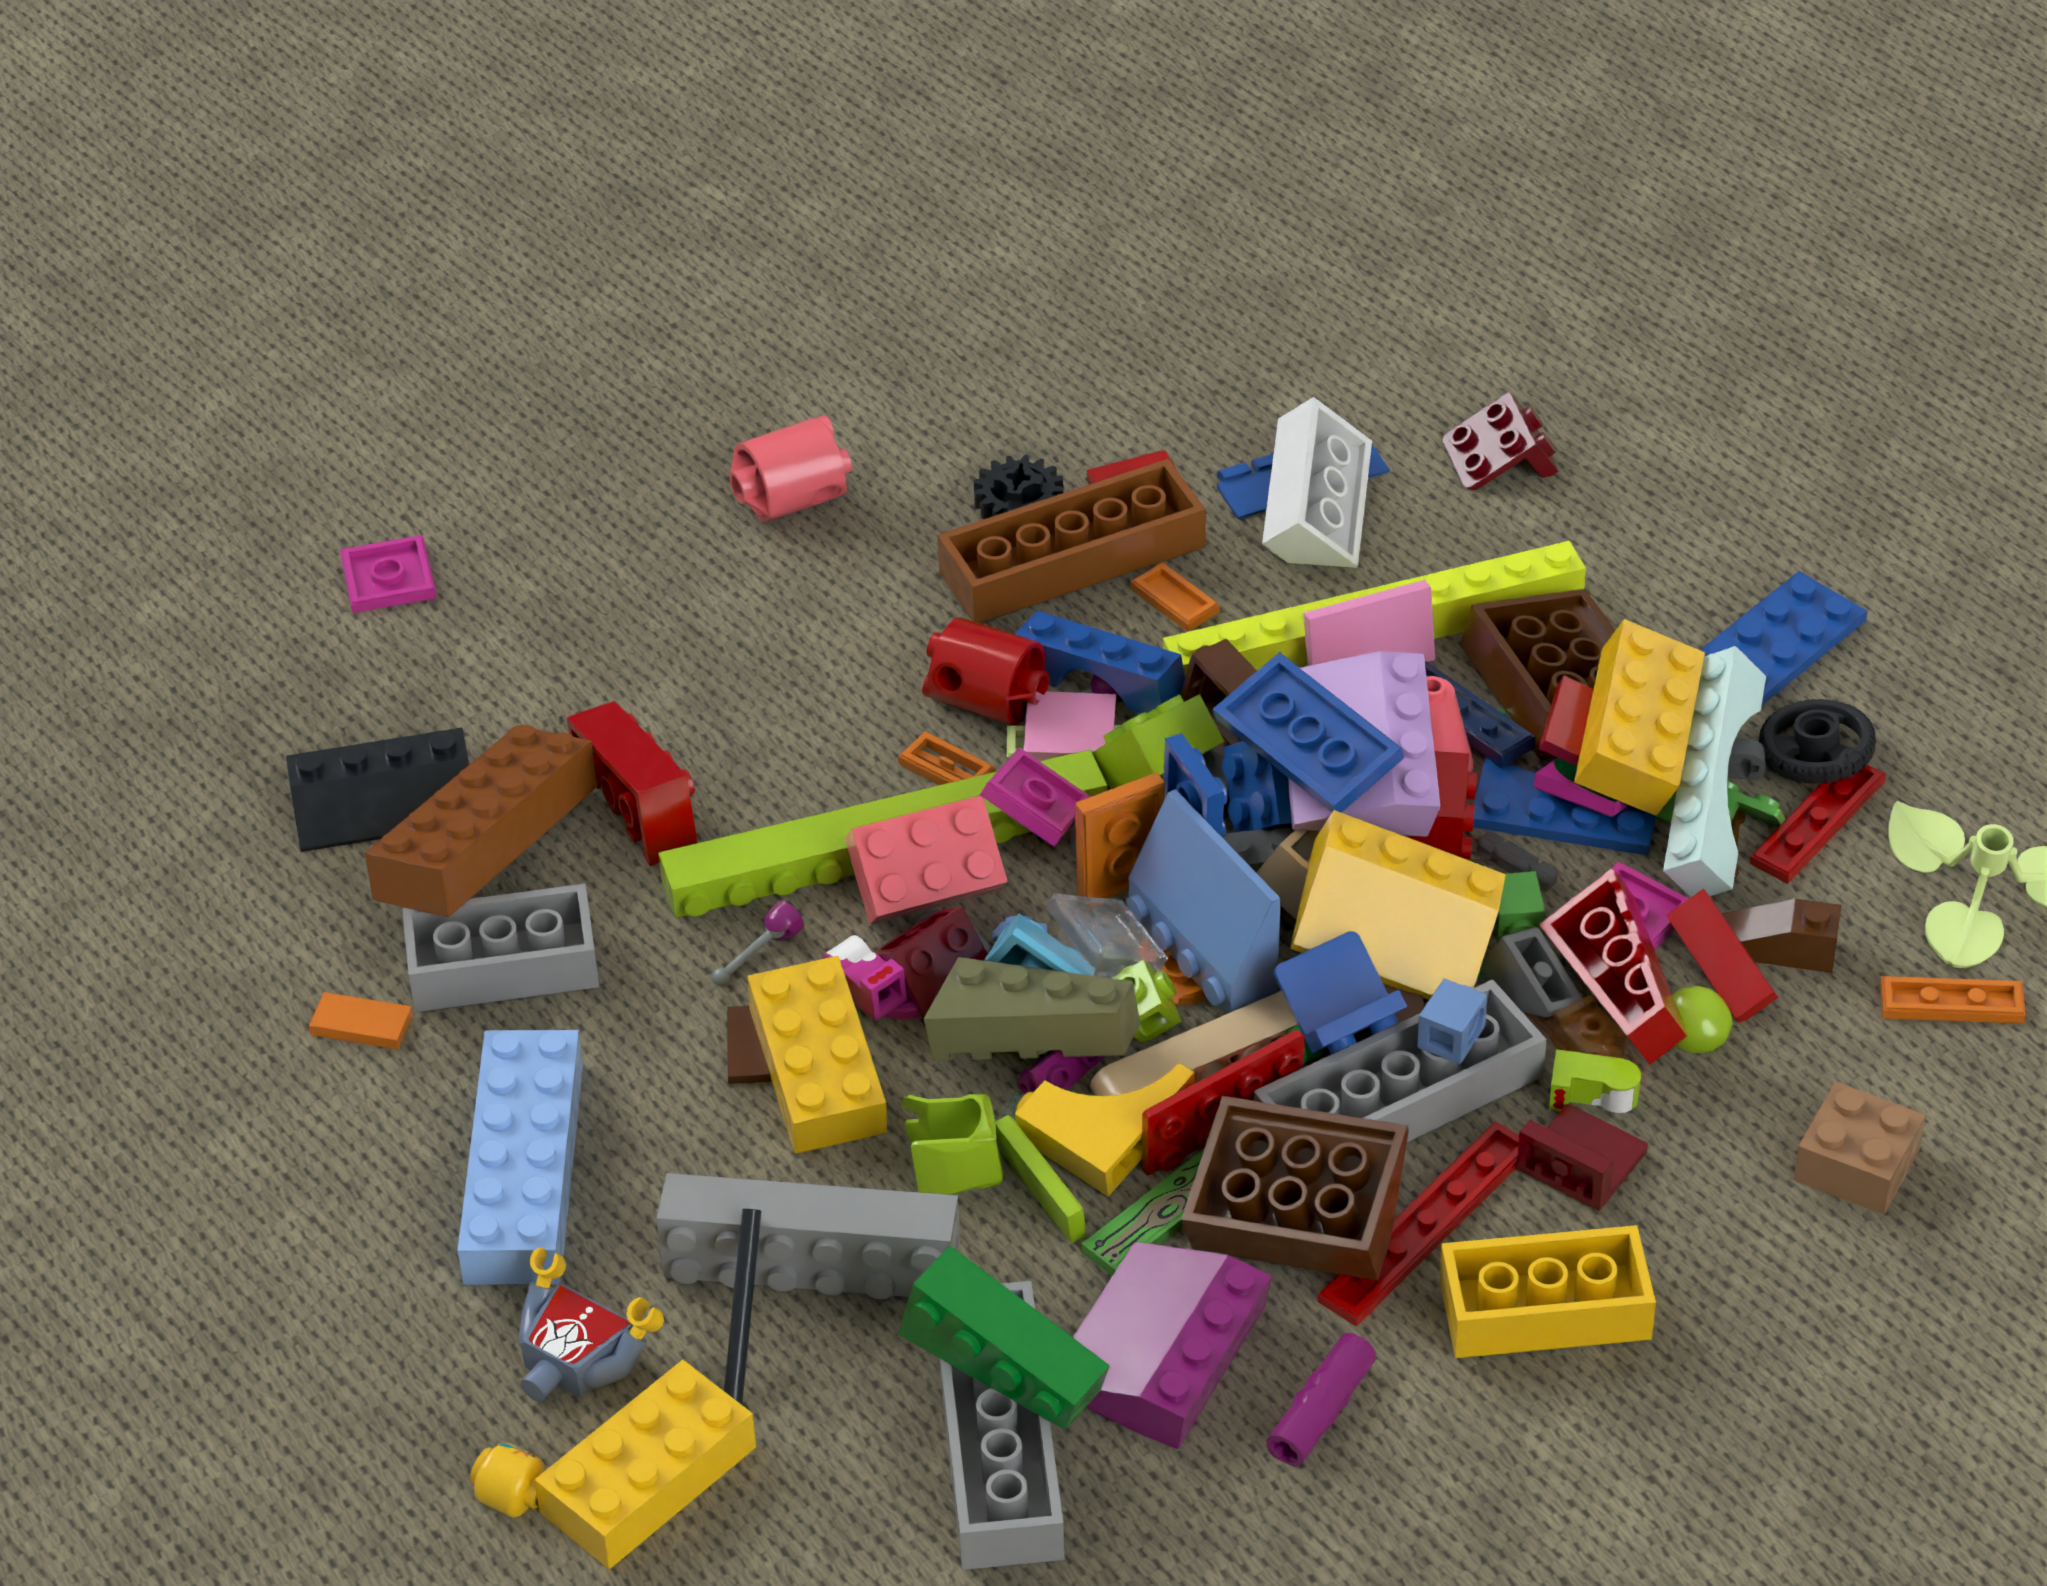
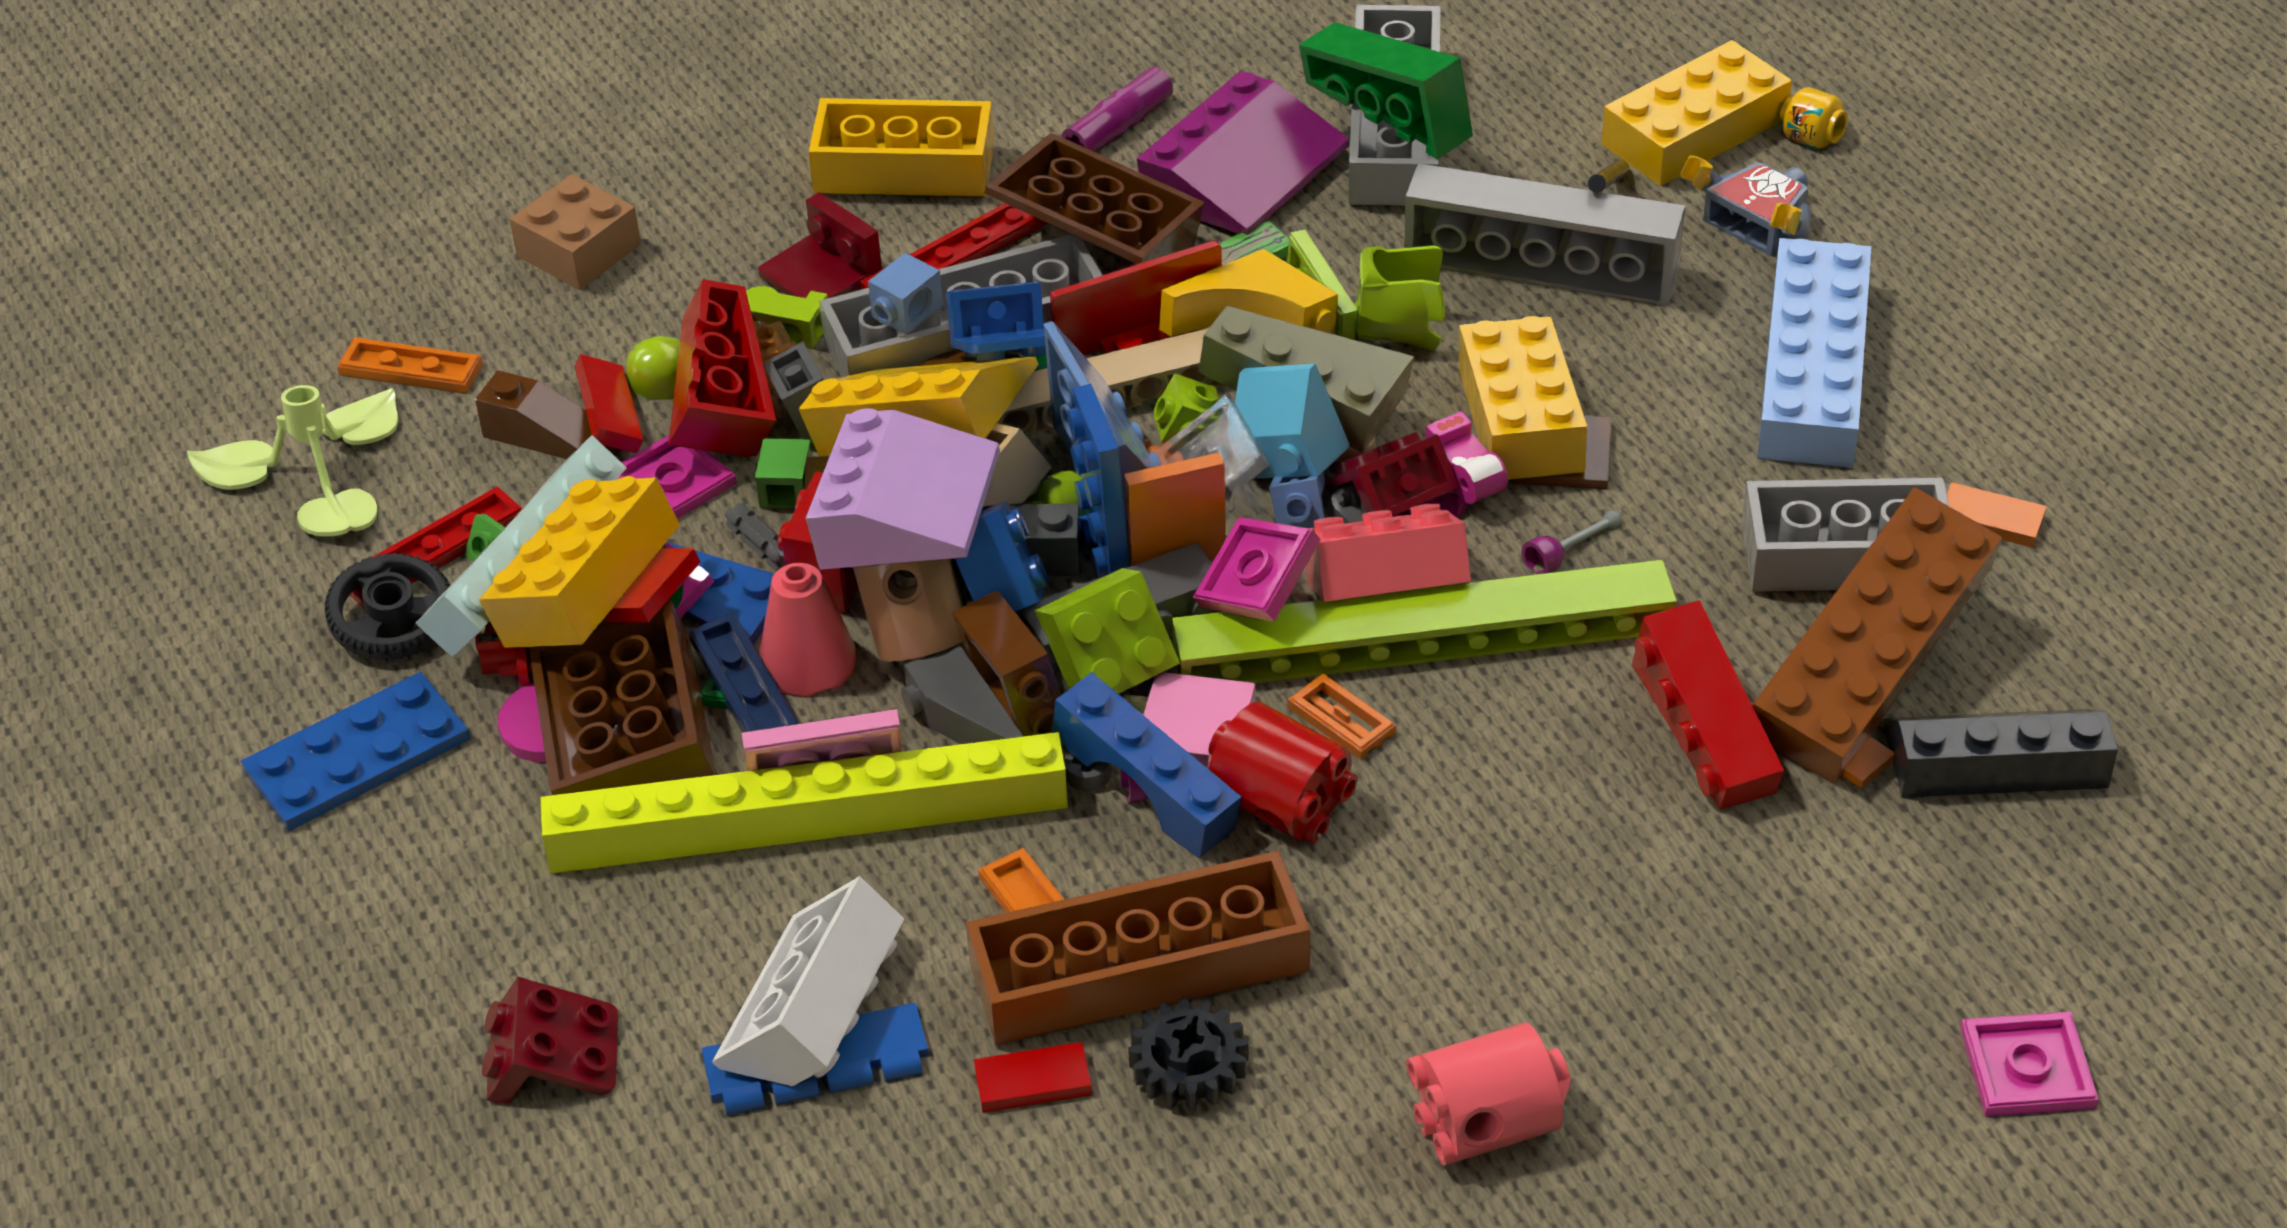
camera: 170 degrees left, 0 degrees up
(1308, 733) = (961, 467): blue plate -> none

